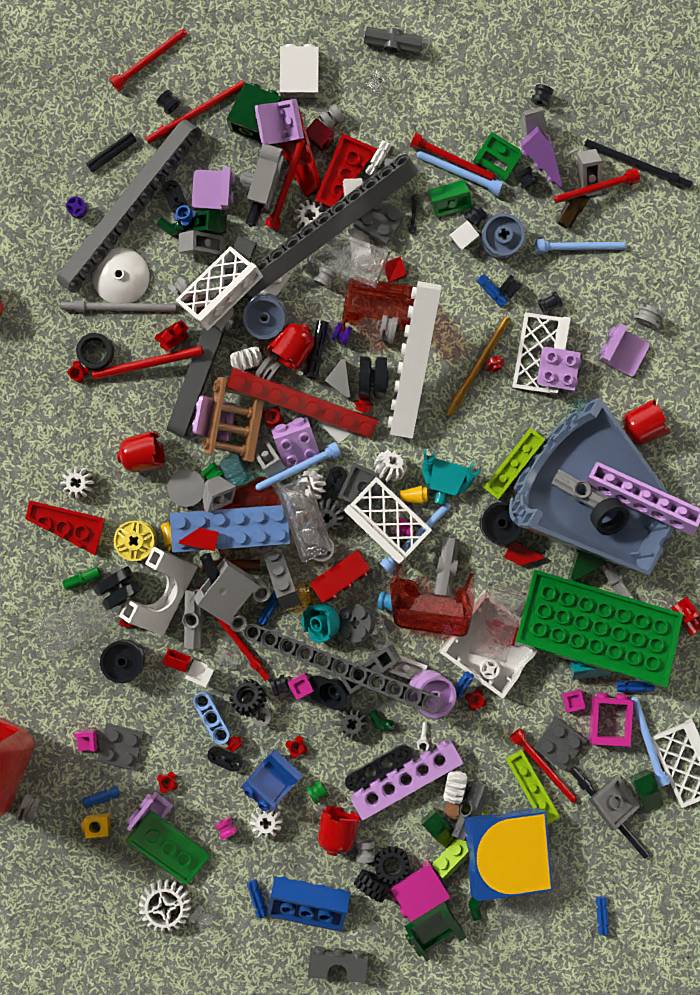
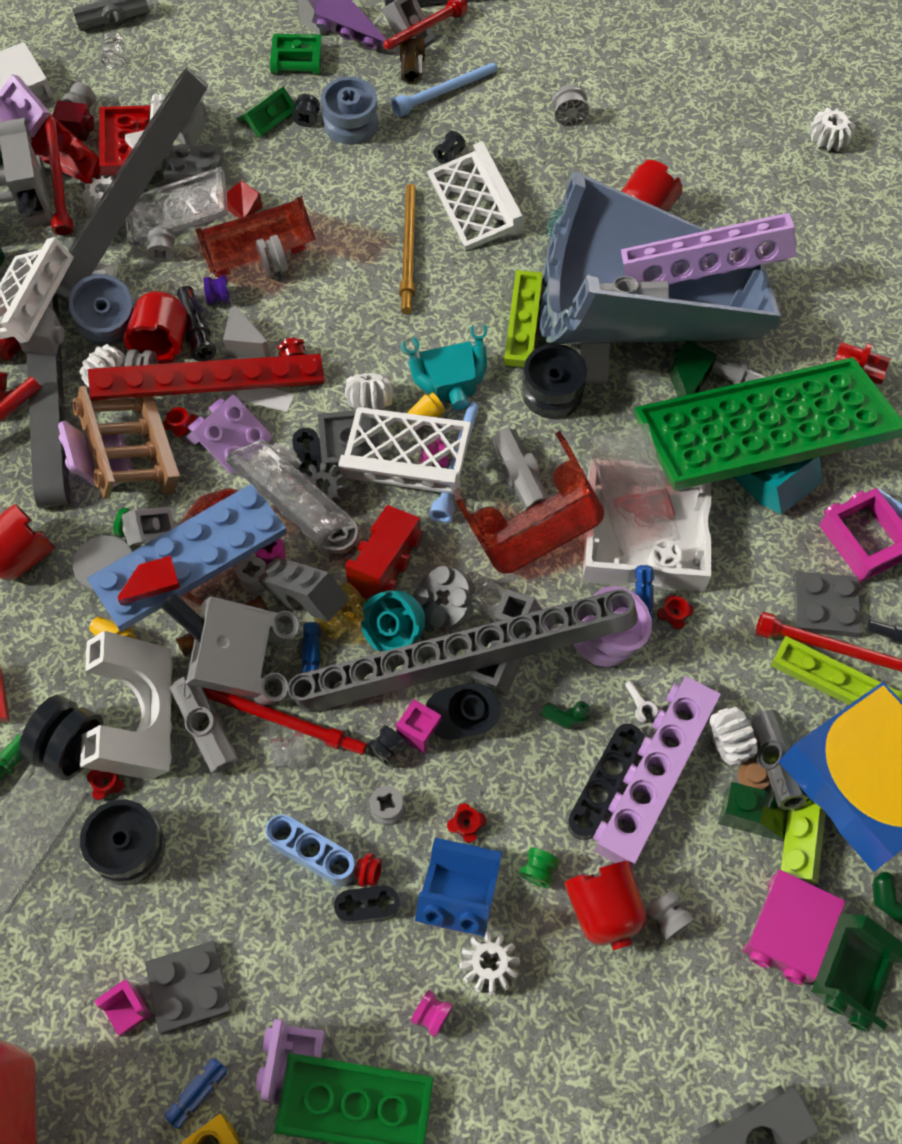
camera: 25 degrees left, 25 degrees down
(147, 540) = (56, 659): light yellow wheel -> none
(162, 782) = (295, 988): red plate -> none
(176, 660) = (210, 799): red piece -> none
(200, 673) = (258, 798): white panel -> none
(234, 470) = (157, 494): clear light blue gear -> none
(241, 690) = (358, 795): black tyre -> none
(256, 898) = (552, 1107): blue axle -> none
(268, 458) = (205, 469): light grey slope -> none
(308, 903) = (640, 1060): blue slope -> none
(331, 451) = (281, 419): light blue piece -> none
(358, 724) = (532, 748): dark grey gear -> none
(372, 885) = (718, 958): black tyre -> none
(373, 377) = (283, 306): black wheel -> none
(384, 601) = (470, 551): dark azure wheel -> none
(399, 874) = (742, 903): black tyre -> none
(412, 229) = (240, 160): black hinge -> none
(415, 359) = (323, 247): white brick -> none
(419, 142) = (252, 77): red piece -> none
(464, 235) = (304, 128): white panel -> none
(492, 290) = (374, 170): blue axle -> none
(493, 186) = (308, 79): light blue piece -> none
(494, 364) = (426, 232): red plate -> none
(510, 286) = (392, 153): black wheel -> none
(520, 554) = (605, 410): red tile -> none
(526, 178) = (341, 55): black wheel -> none
(559, 369) = (507, 192): lavender bracket -> none
(573, 700) = (802, 539): dark pink plate -> none
(604, 508) = (688, 278): black tyre -> none
(623, 350) = (565, 151): lavender bracket -> none
(634, 686) = (864, 480): blue axle -> none

